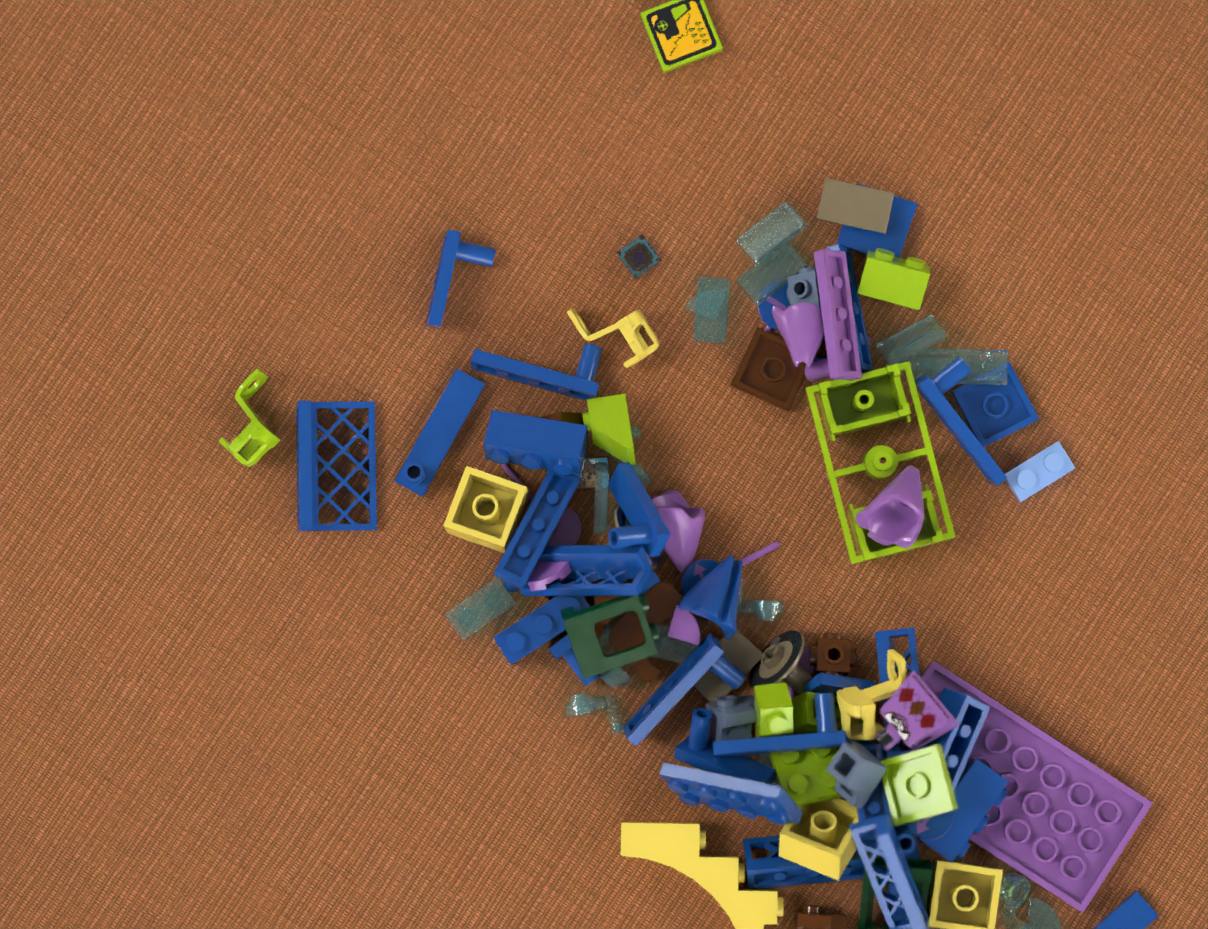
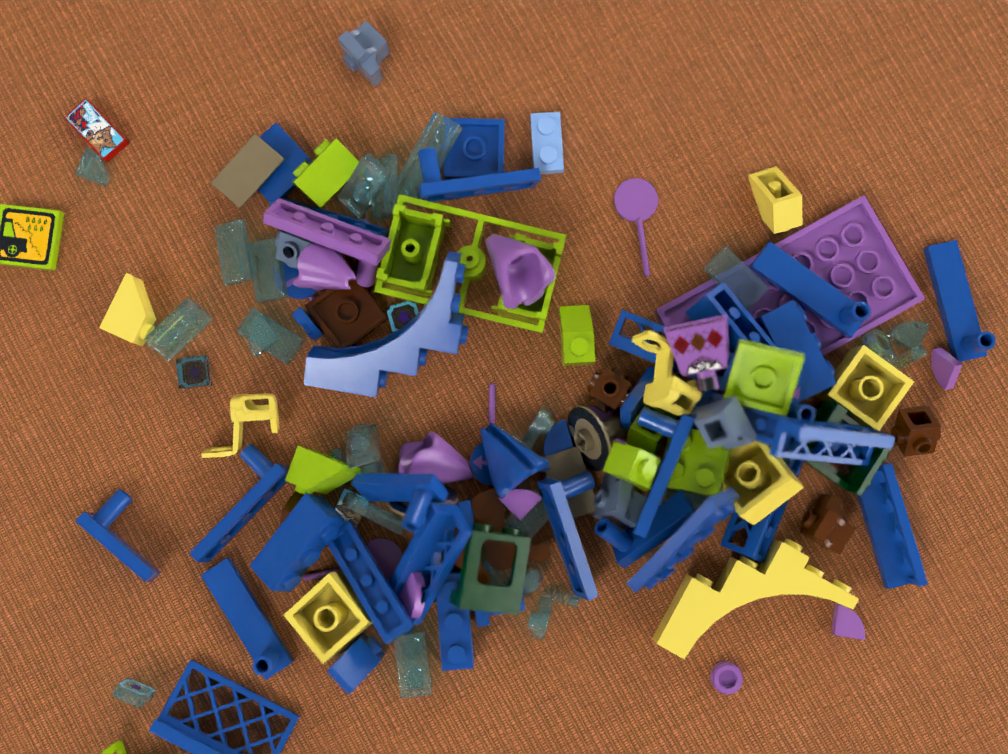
camera: 65 degrees left, 0 degrees up
(319, 367) = (133, 692): none -> clear light blue tile
(459, 556) = (356, 662): none -> blue slope
(622, 909) = (726, 677): none -> medium lavender tile
(658, 453) = (362, 445): none -> clear light blue plate
(662, 169) = (130, 312): none -> light yellow slope
(672, 221) = (178, 329): none -> clear light blue plate
(732, 417) = (366, 366): none -> arch
(741, 339) = (304, 320): none -> blue tile
(760, 632) = (557, 439): none -> blue tile
(779, 55) = (92, 168): none -> clear light blue tile
(796, 426) = (401, 314): none -> tile
(817, 38) = (96, 130): none -> tile
(868, 598) = (576, 335): none -> lime slope
(901, 322) = (364, 185): none -> clear light blue plate
(1003, 720) = (737, 276): none -> clear light blue tile
(1028, 588) = (636, 202): none -> medium lavender piece
(1030, 251) = (364, 51): none -> sand blue brick
(1030, 795) = (810, 290): none -> blue piece
(1102, 720) = (777, 199): none -> light yellow slope

